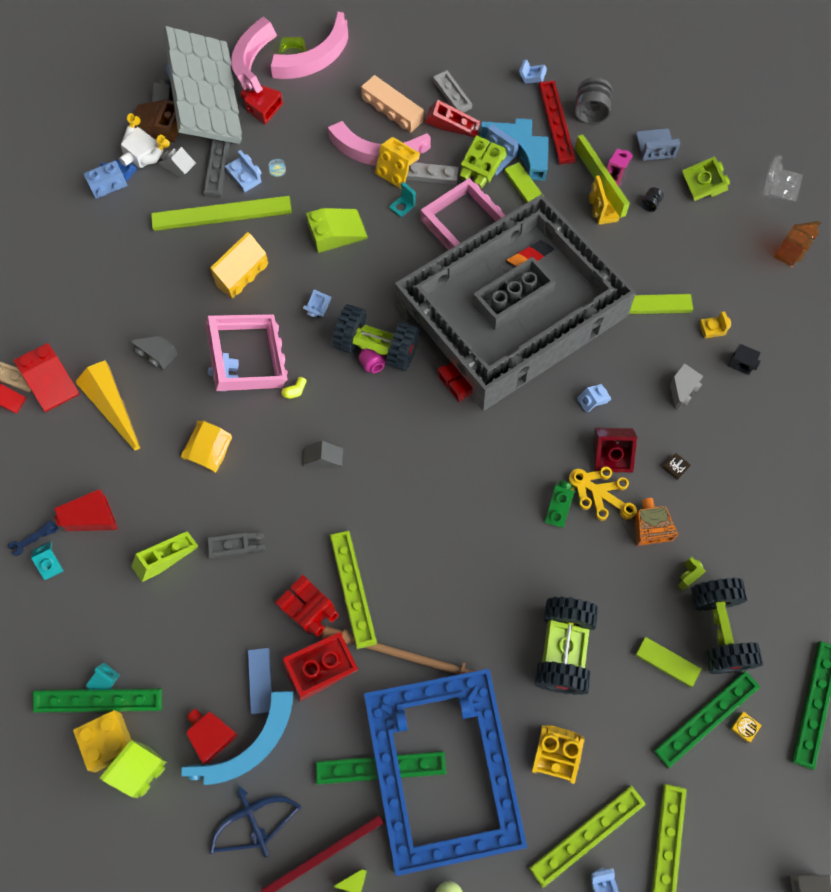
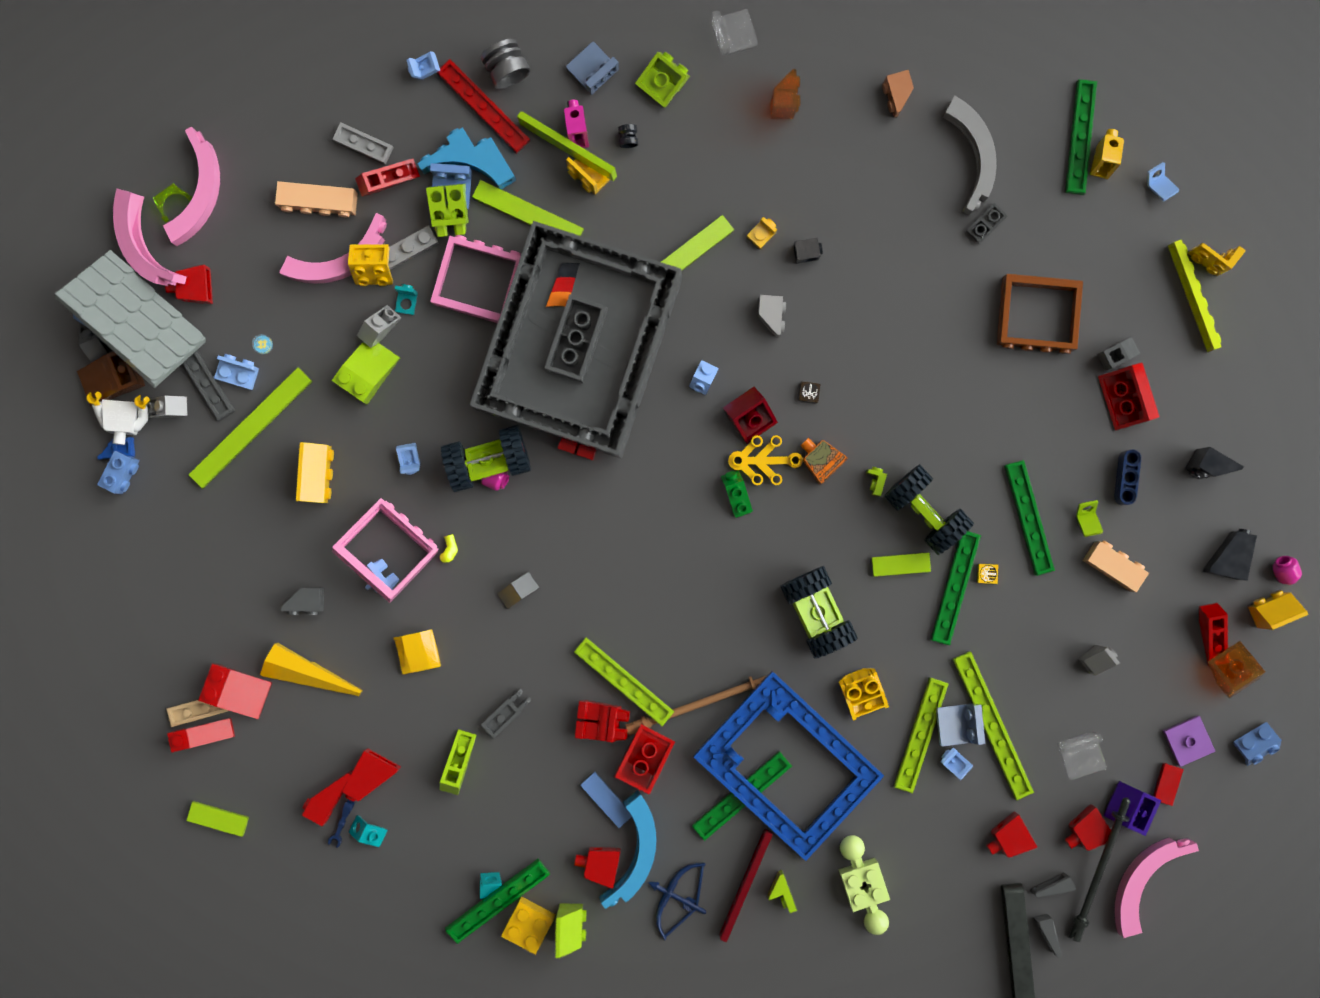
camera: 40 degrees left, 20 degrees up
(35, 509) = (322, 804): none -> red slope
(368, 205) = (378, 326): none -> light grey slope
(634, 852) = (960, 724): none -> bracket

